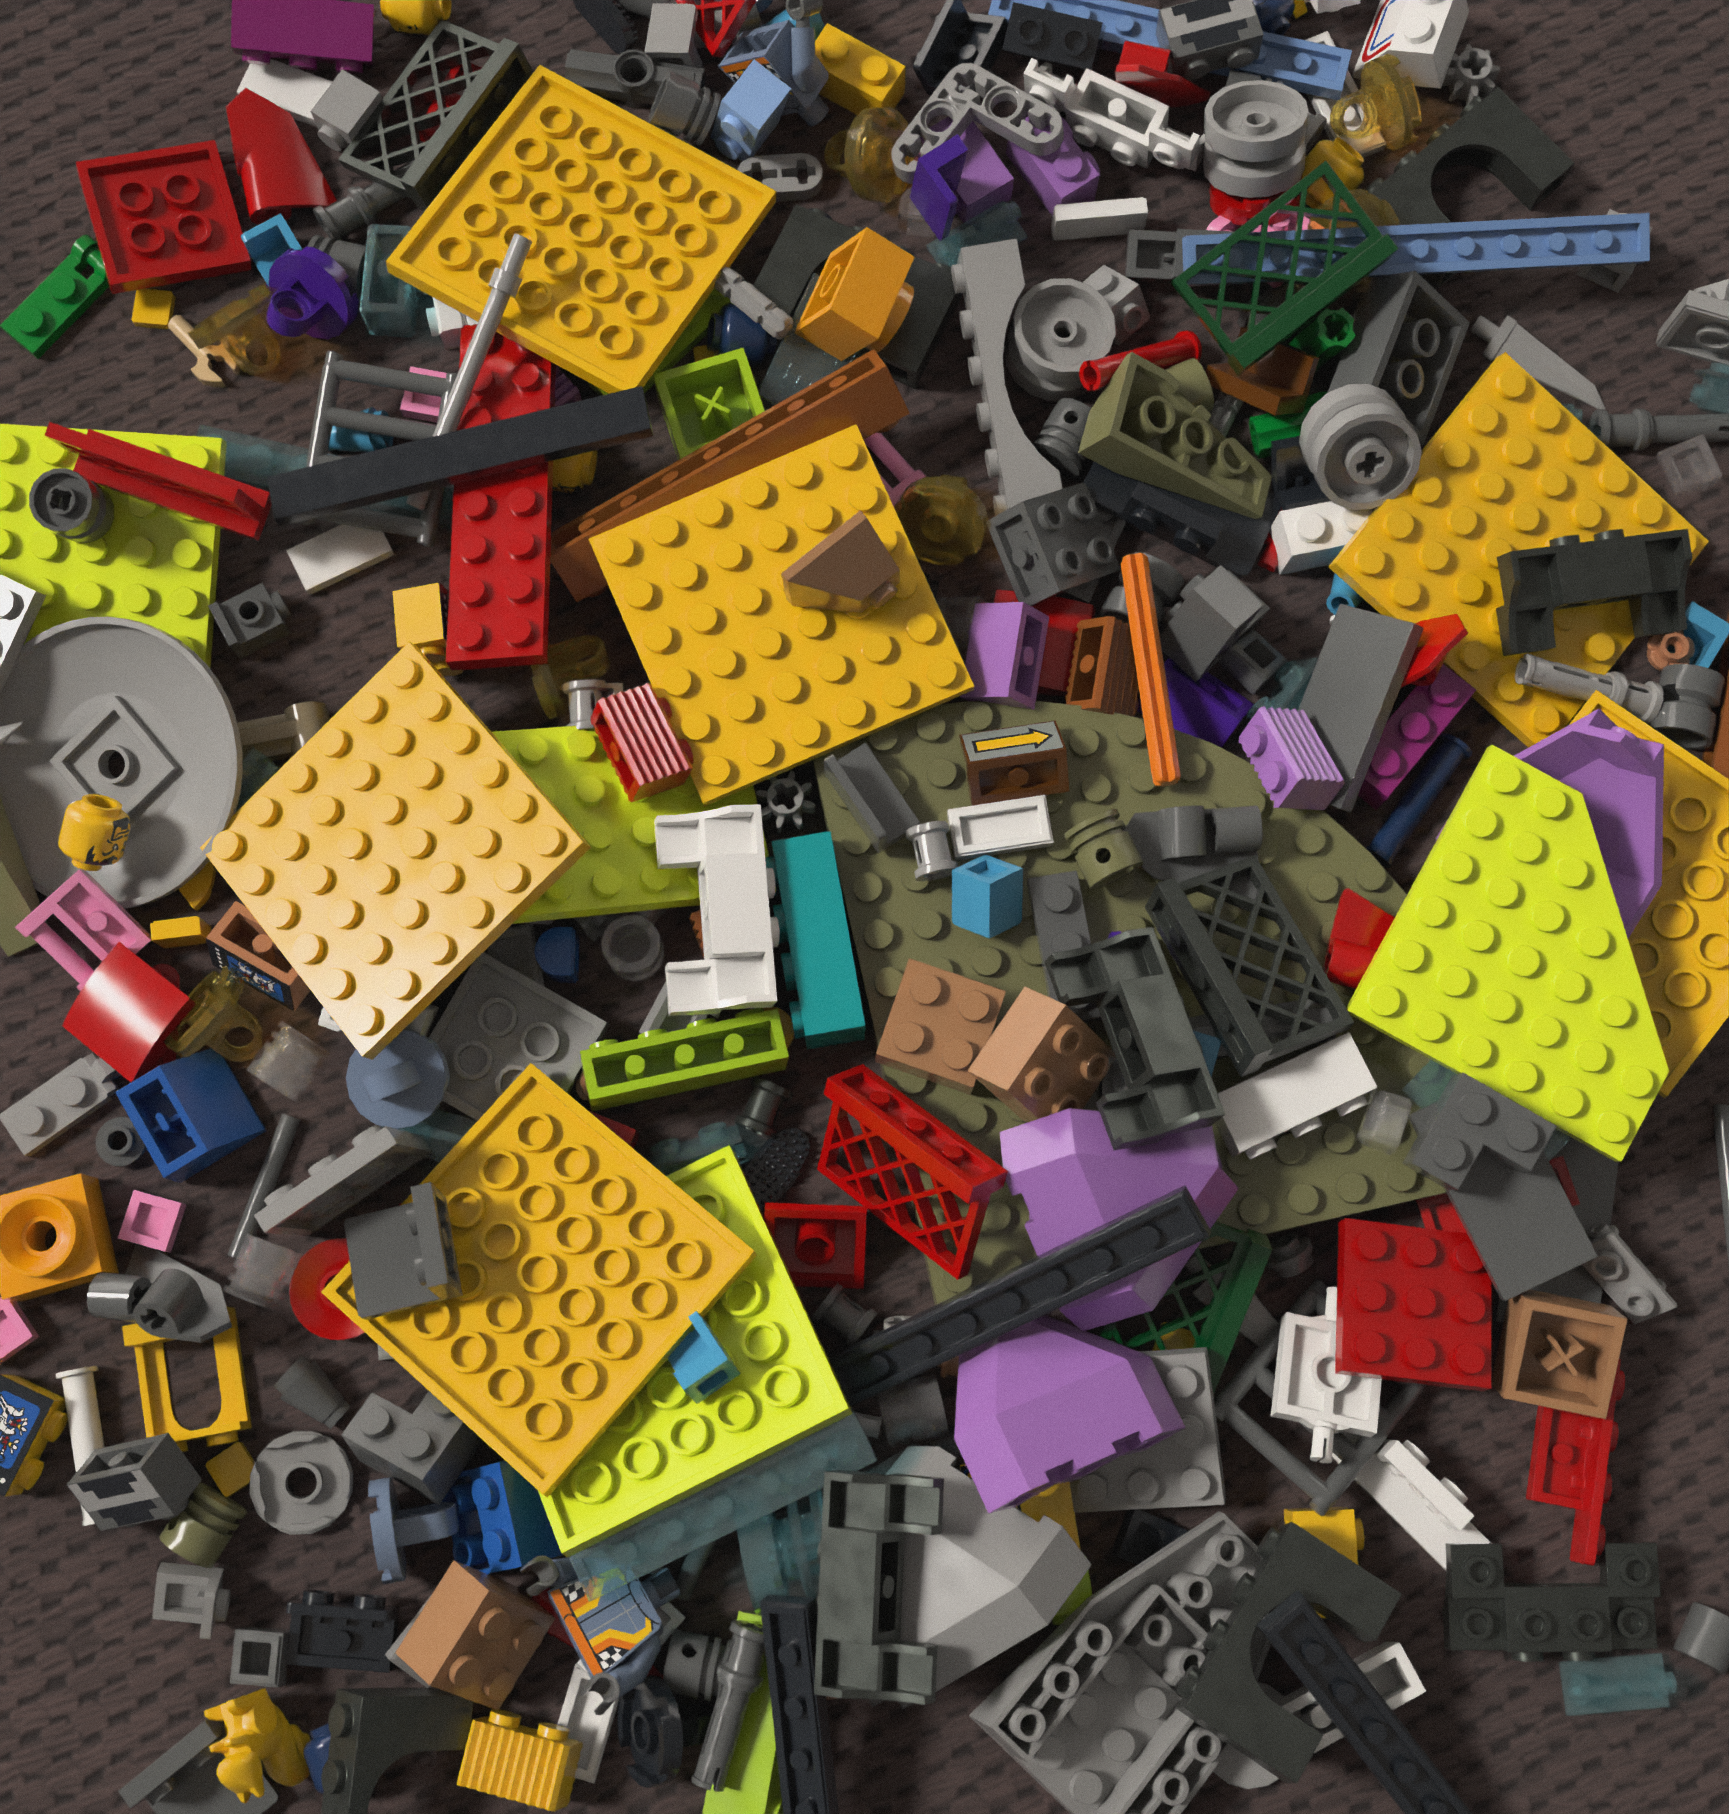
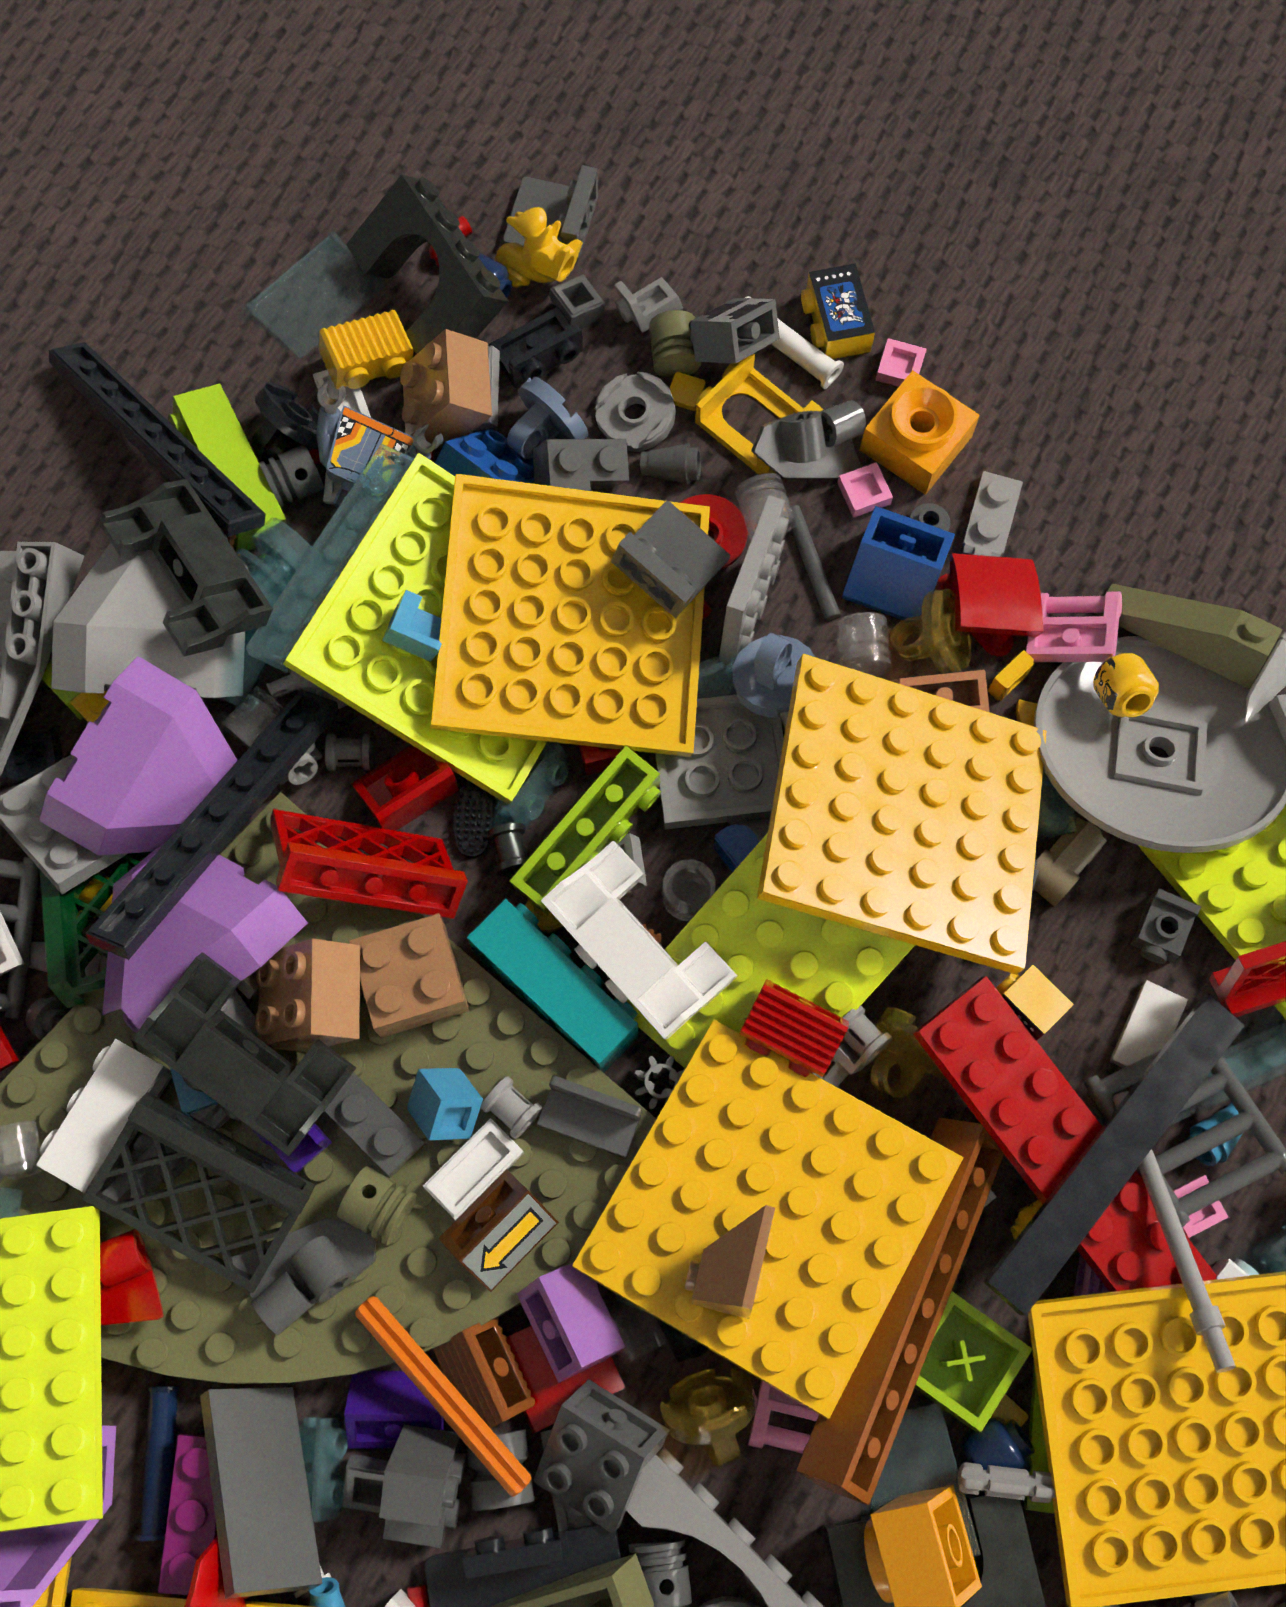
camera: 145 degrees right, 5 degrees down
(738, 1680) = (251, 472): dark grey pin -> none
(1291, 759) = (276, 1403): medium lavender brick -> none

